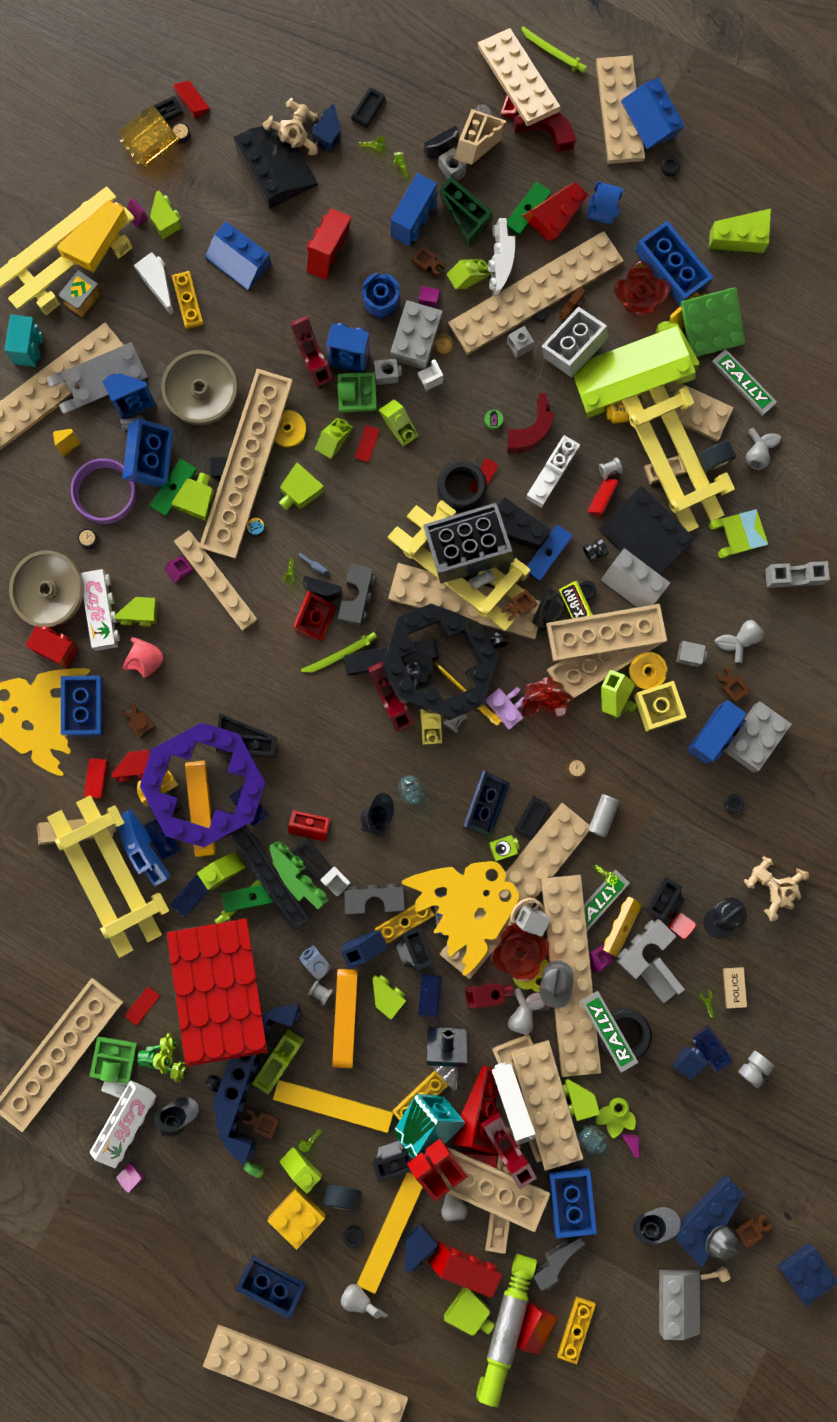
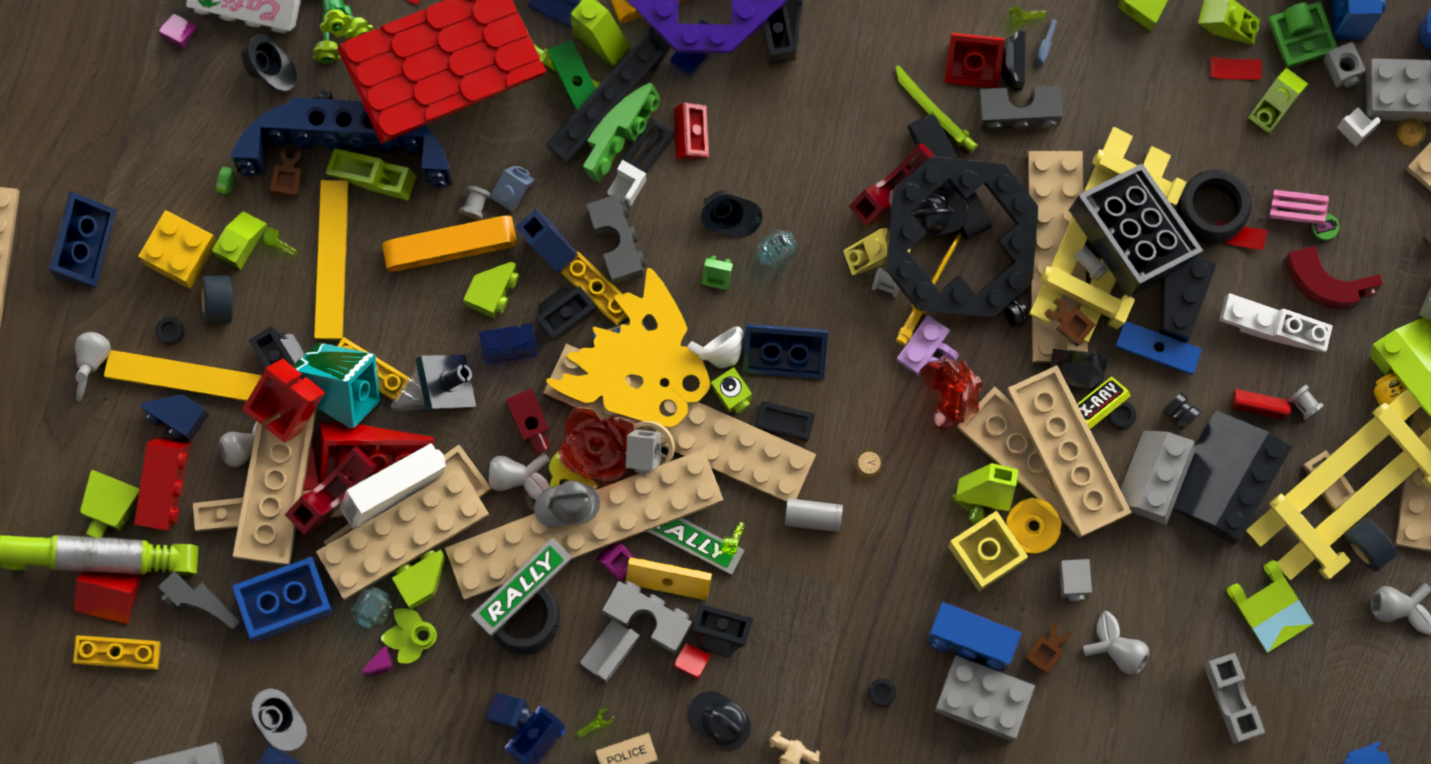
camera: 80 degrees right, 5 degrees down
(417, 835) = (717, 273): none -> bright green tile
(470, 427) = (1301, 197): none -> bright pink tile
(472, 846) = (723, 350): none -> white hat

